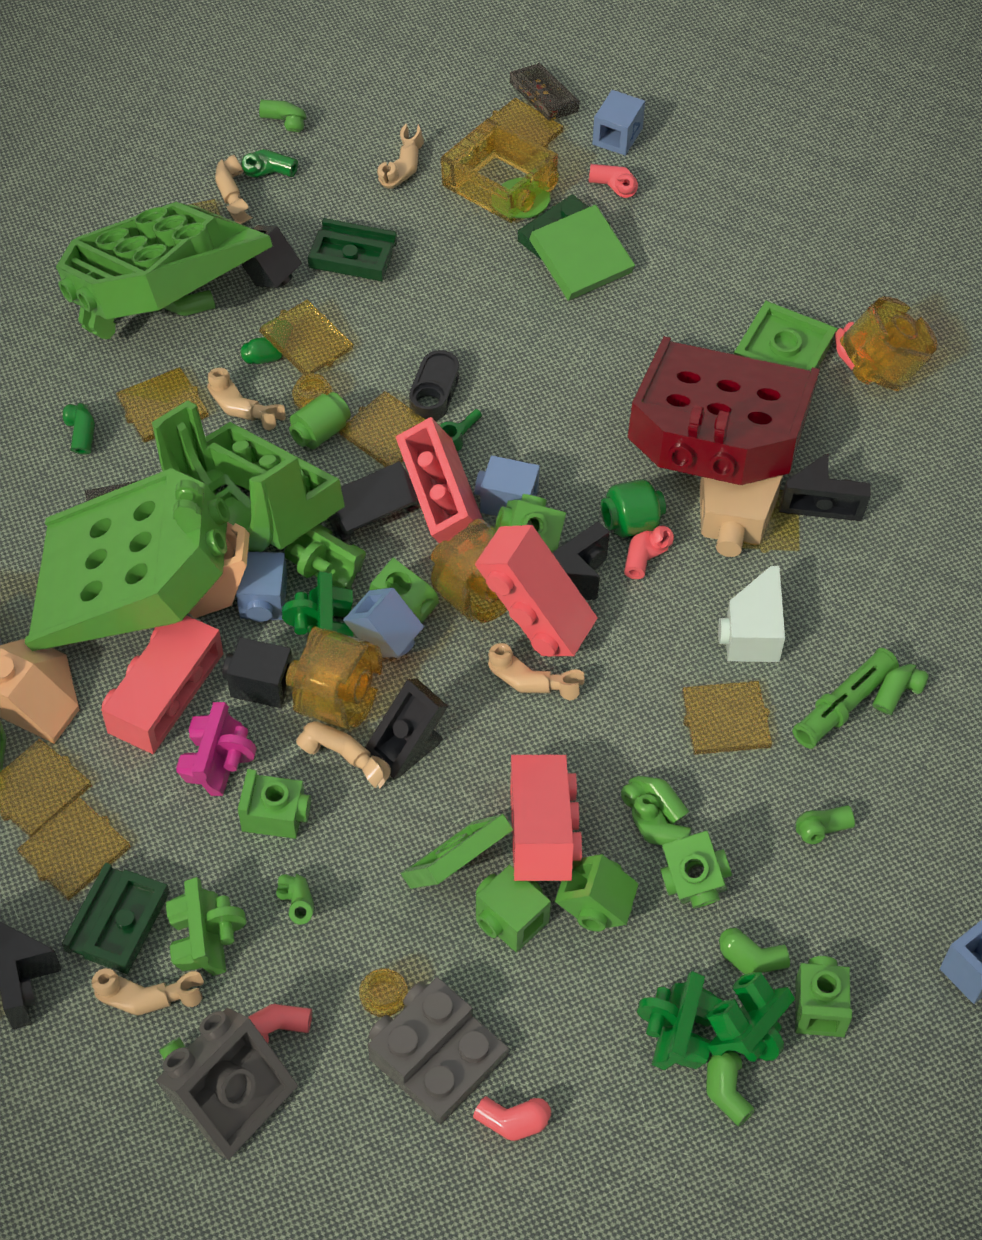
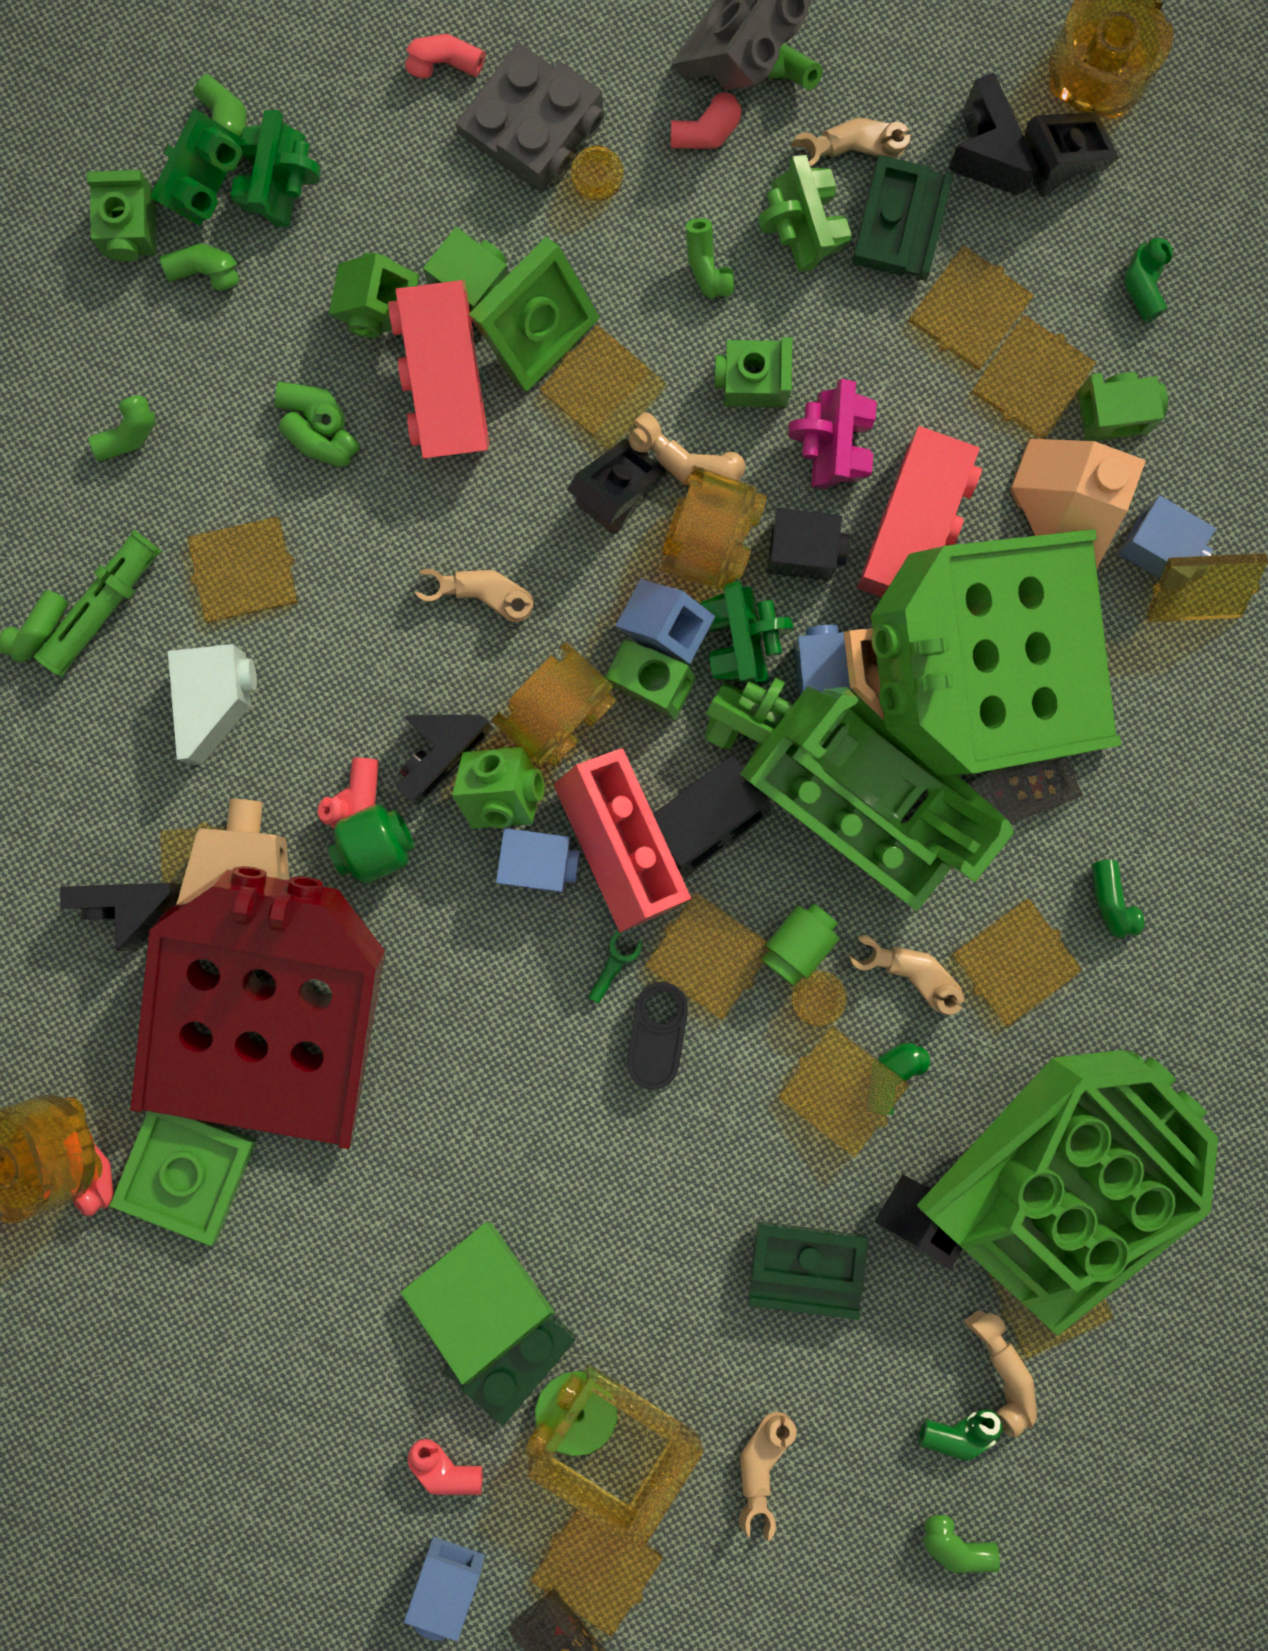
camera: 175 degrees right, 30 degrees up
(405, 821) = (603, 387): none -> clear yellow piece
(536, 590) = (479, 655): coral brick -> none
(687, 854) = (265, 338): bright green brick -> none

